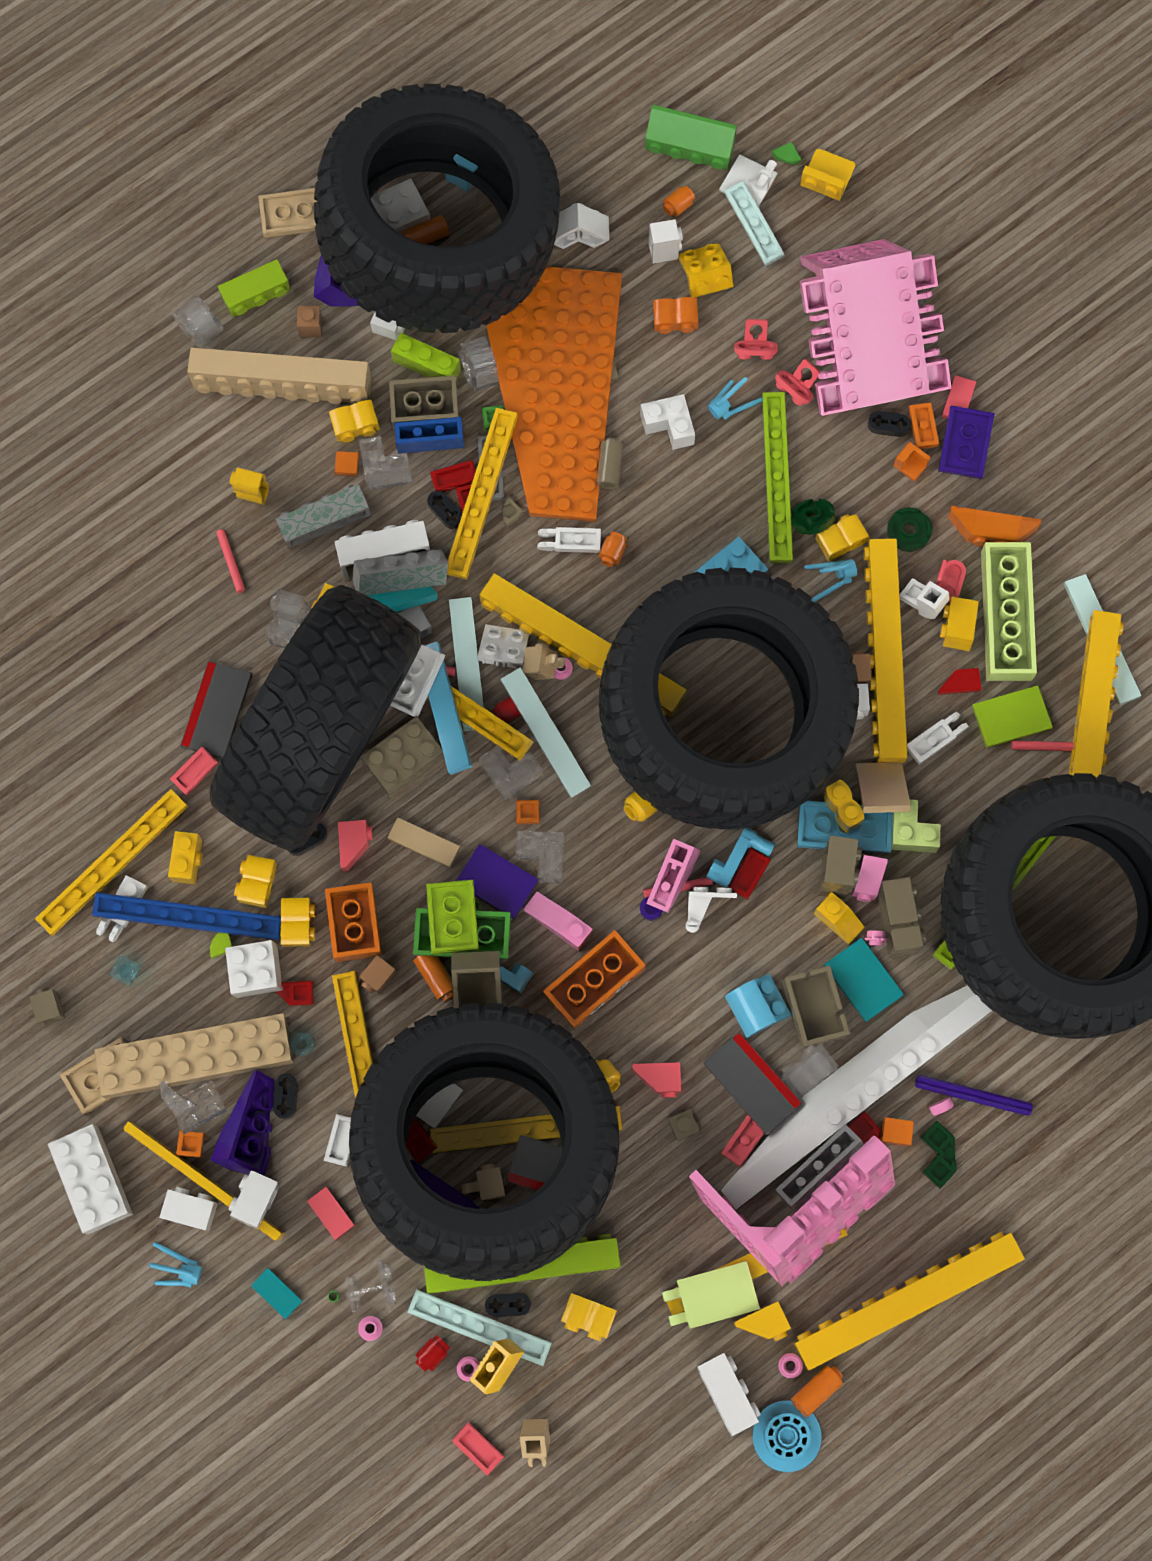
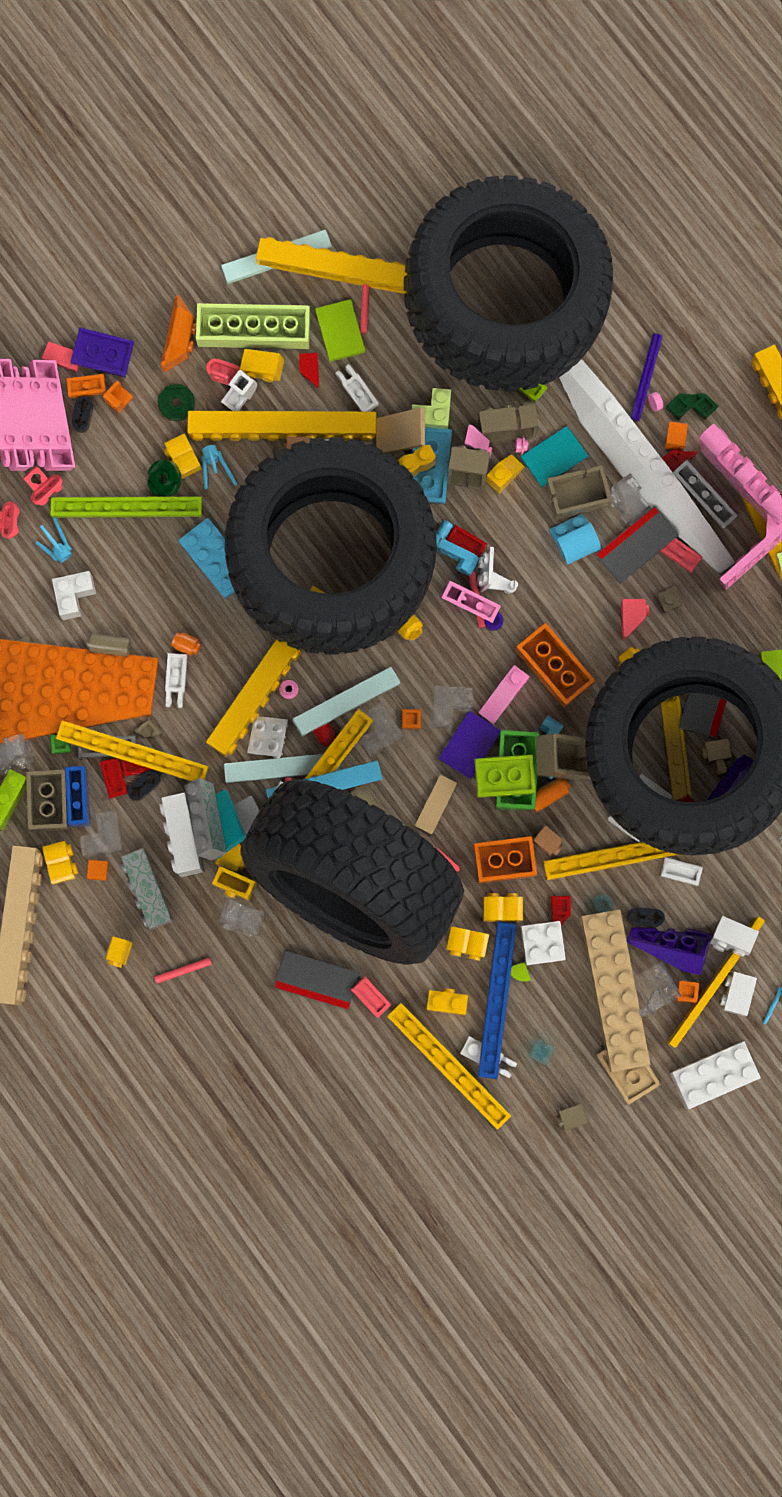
camera: 90 degrees left, 5 degrees up
(330, 1213) = (739, 879): coral tile -> none
(541, 662) = (284, 703): tan brick -> none

